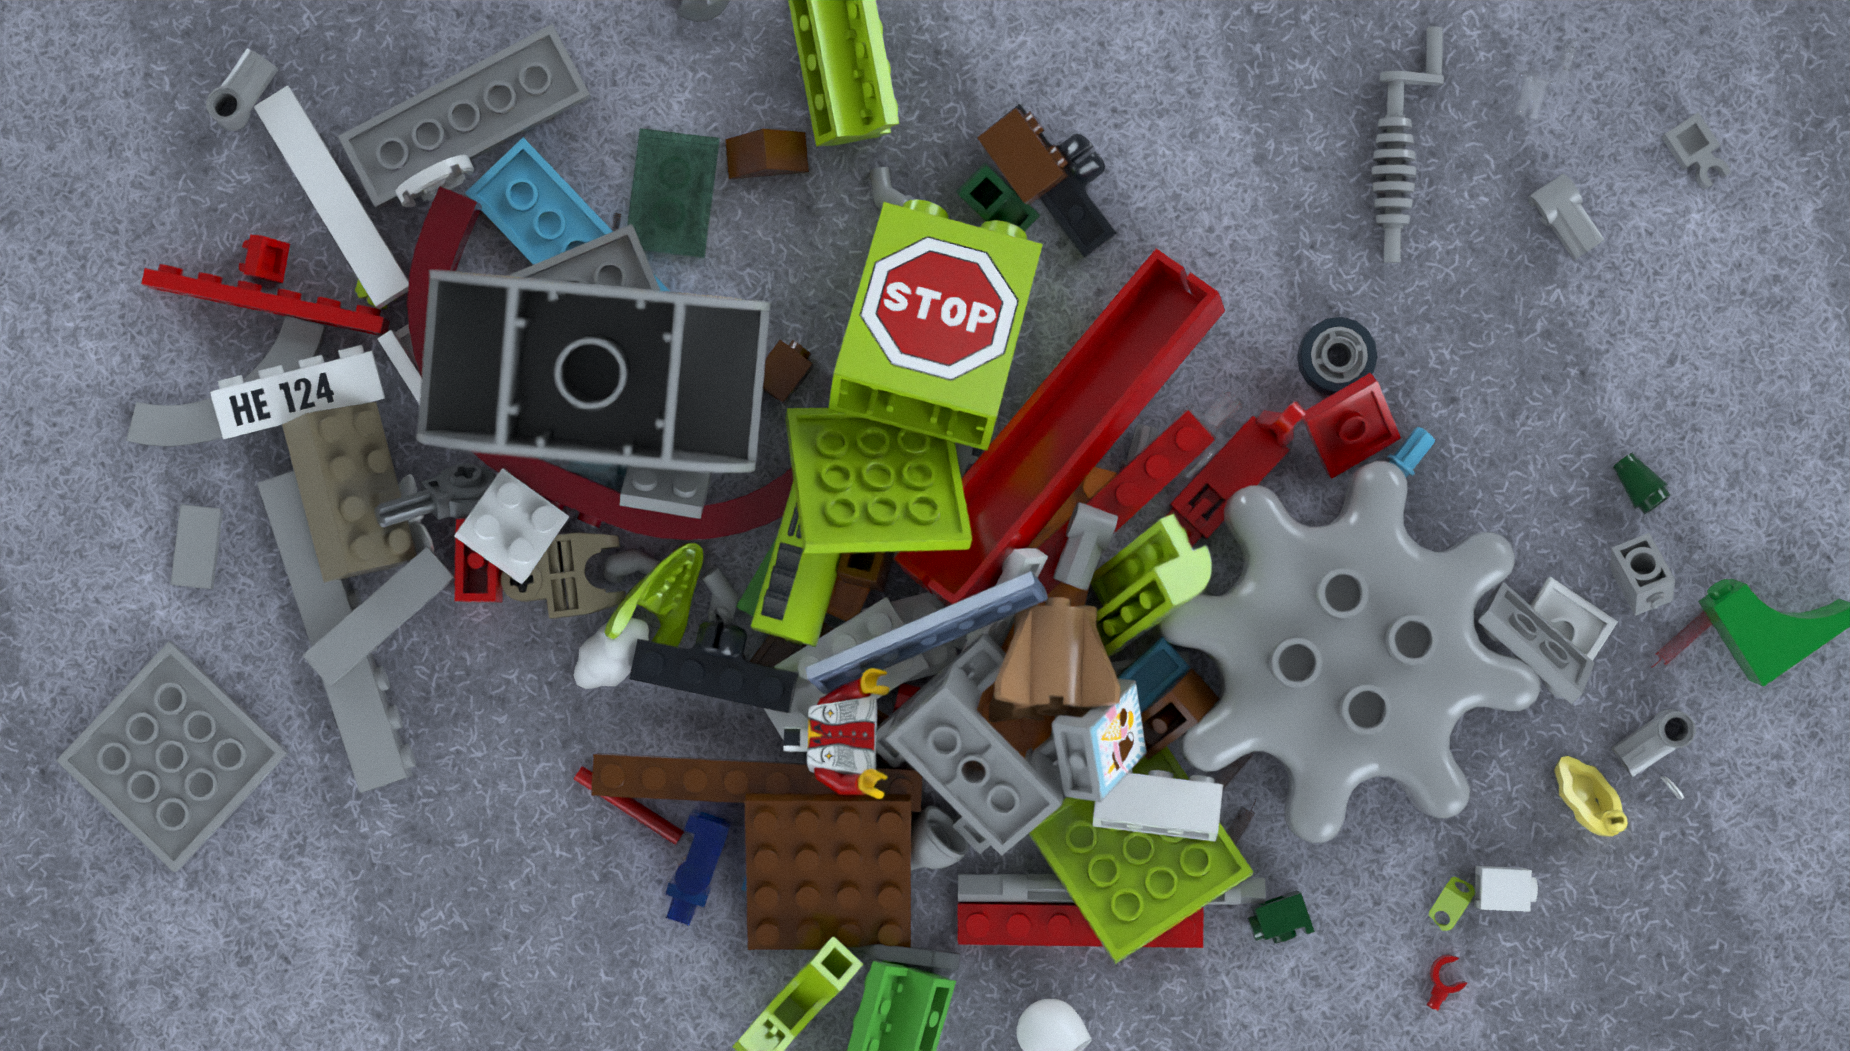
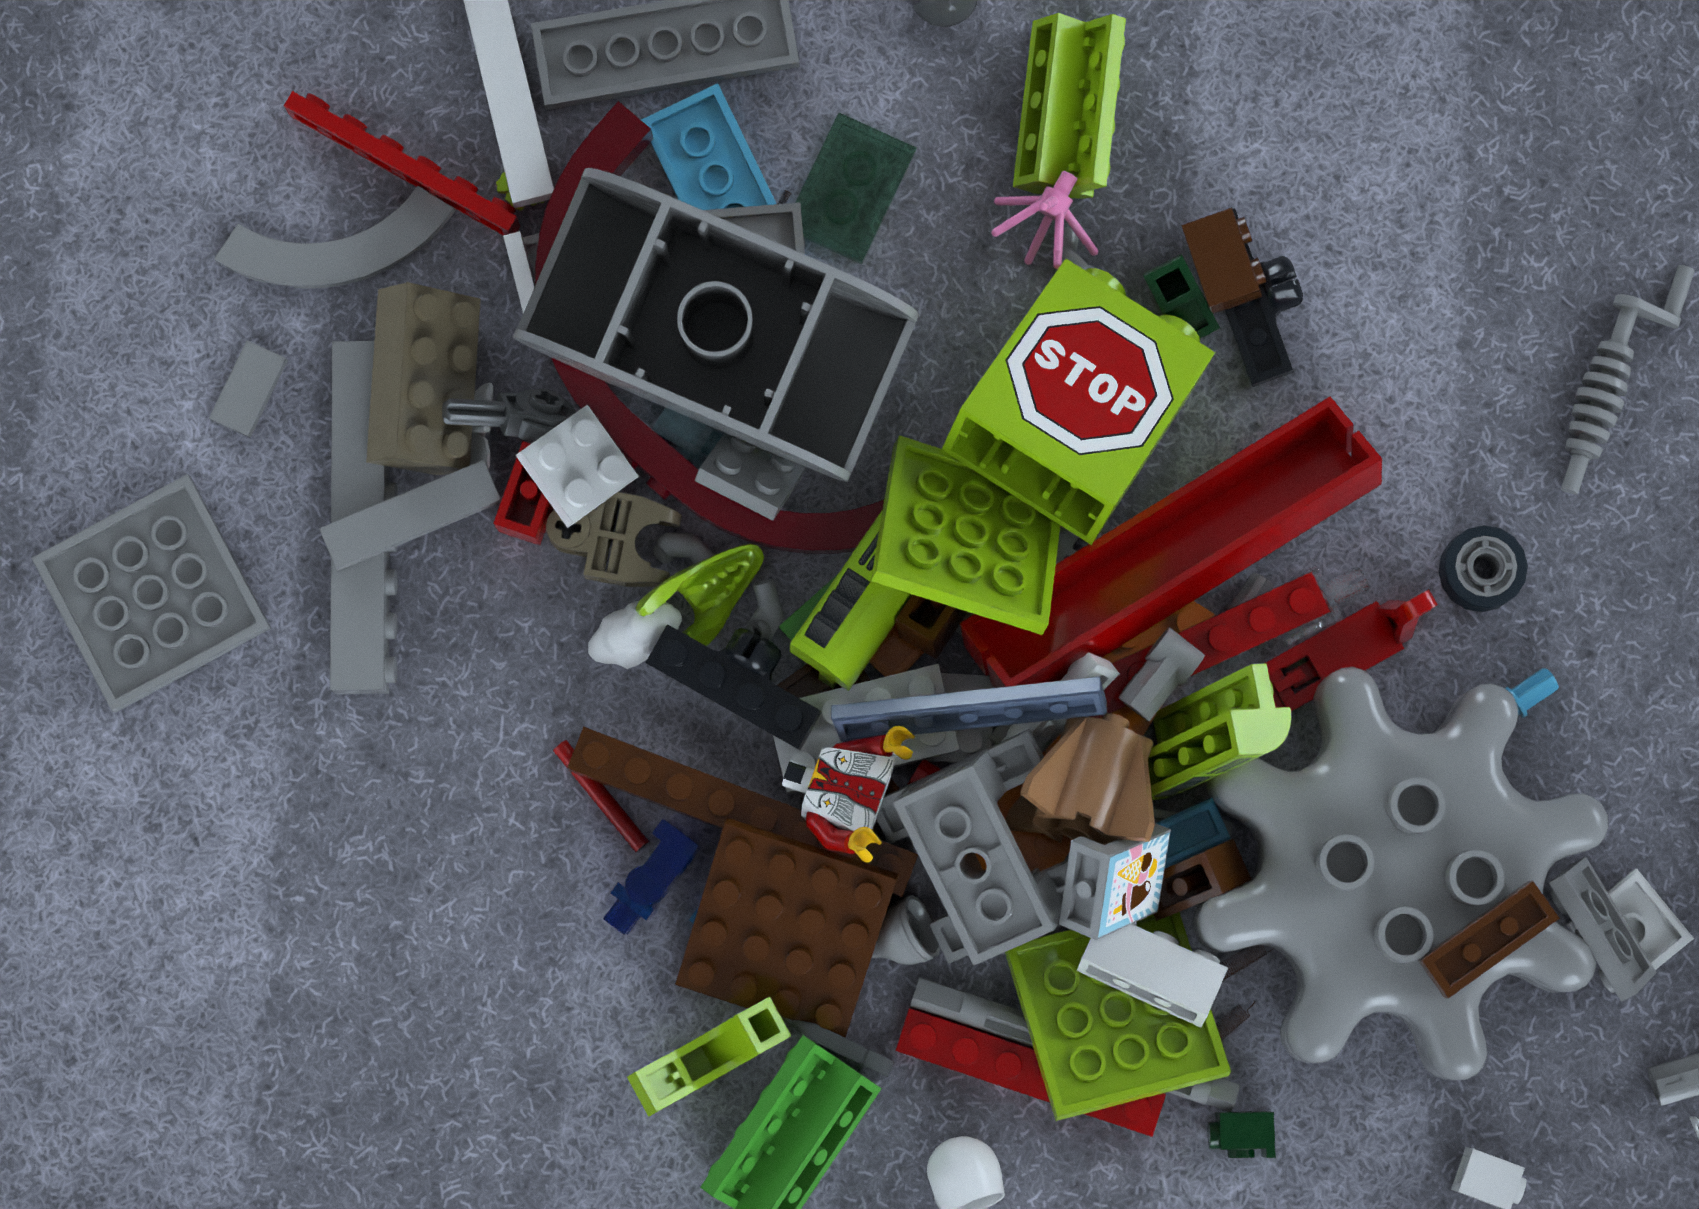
camera: 20 degrees right, 5 degrees down
(265, 258) = (416, 121): red tile -> none
(287, 395) = (384, 260): white brick -> none
(426, 182) = (605, 93): white tile -> none
(766, 153) = (959, 178): reddish brown slope -> none
(786, 370) = (908, 401): reddish brown brick -> none
(855, 155) = (1055, 206): none -> bright pink plant
(1351, 425) = (1475, 643): red plate -> none
(1440, 690) = (1488, 939): none -> reddish brown plate
(1452, 902) = (1429, 1177): lime piece -> none
(1579, 787) = (1603, 1099): light yellow arm -> none

